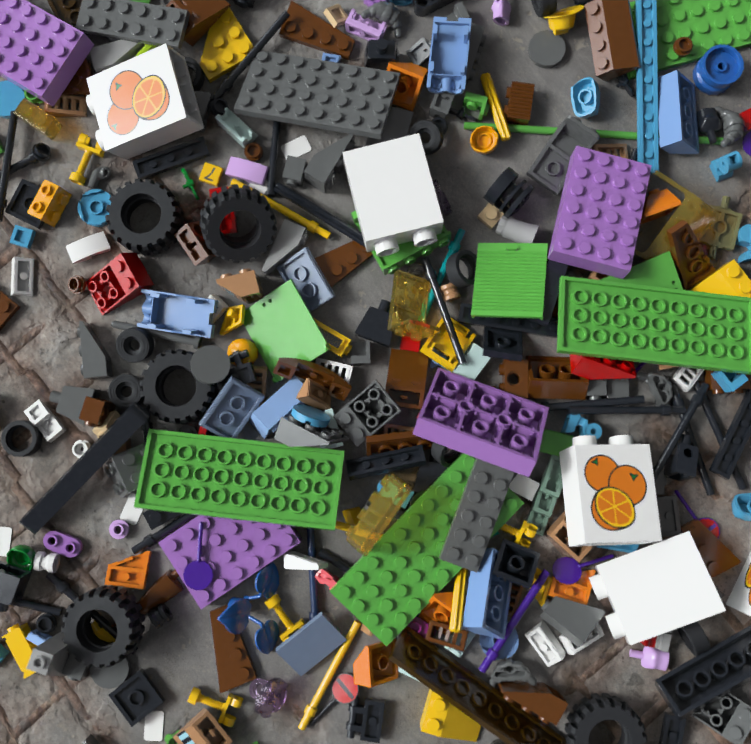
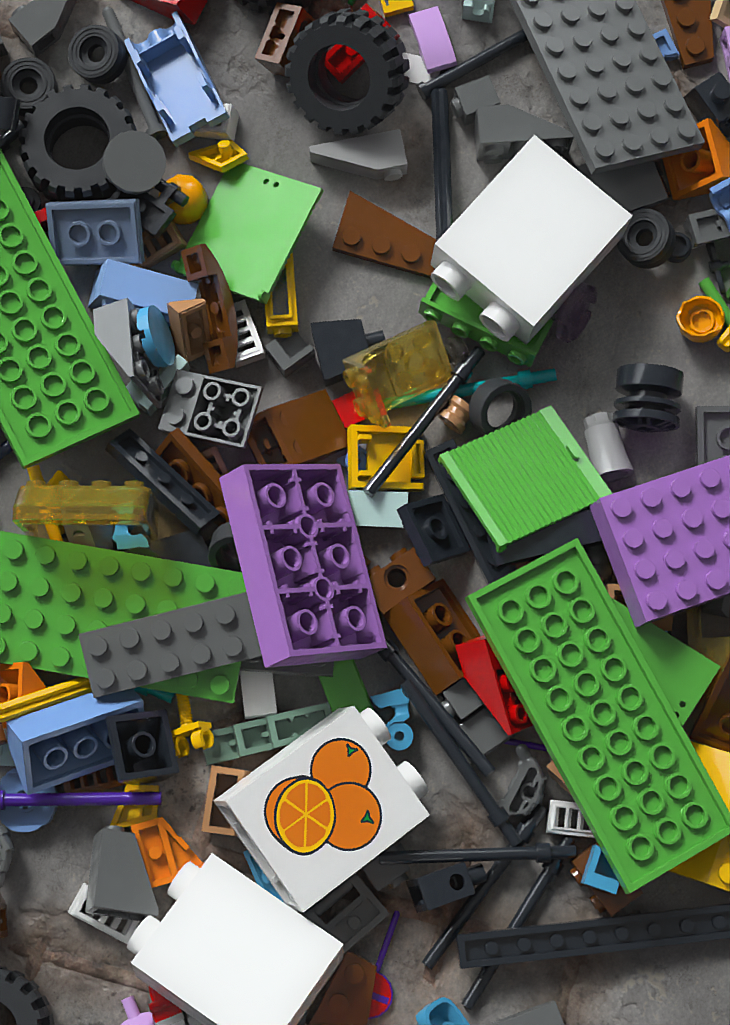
camera: 55 degrees right, 5 degrees down
(243, 286) = (272, 137): medium nougat slope -> none
(253, 151) = (465, 31): reddish brown plate -> none
(296, 147) = (512, 82): white sticker -> none
(307, 278) = (338, 215): sand blue tile -> none
(311, 226) = (418, 173): yellow bar -> none
(490, 215) = (601, 398): tan plate -> none
(545, 644) = (61, 871): white slope -> none
(569, 571) = (182, 831): dark purple piece -> none

